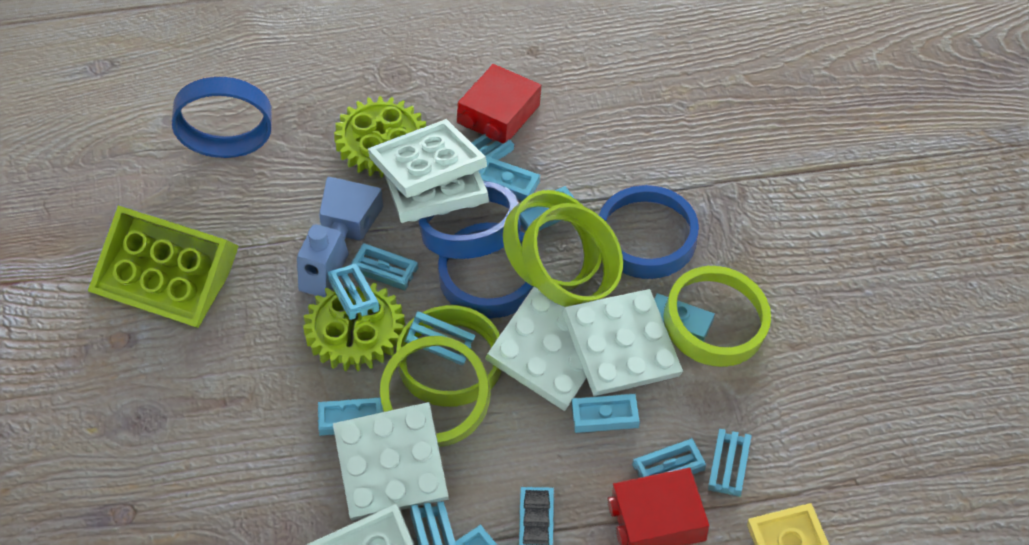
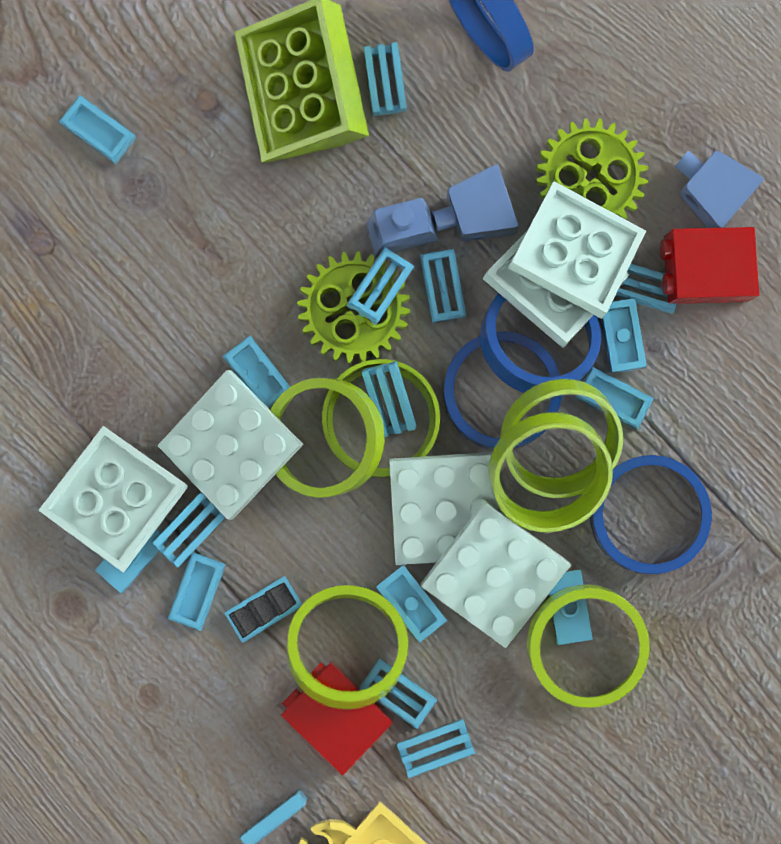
camera: 55 degrees right, 30 degrees up
(73, 421) = (97, 129): none -> medium azure tile
(210, 215) = (382, 51): none -> medium azure tile
(447, 74) = (716, 187): none -> medium blue torso
(620, 499) = (329, 696): none -> lime piece

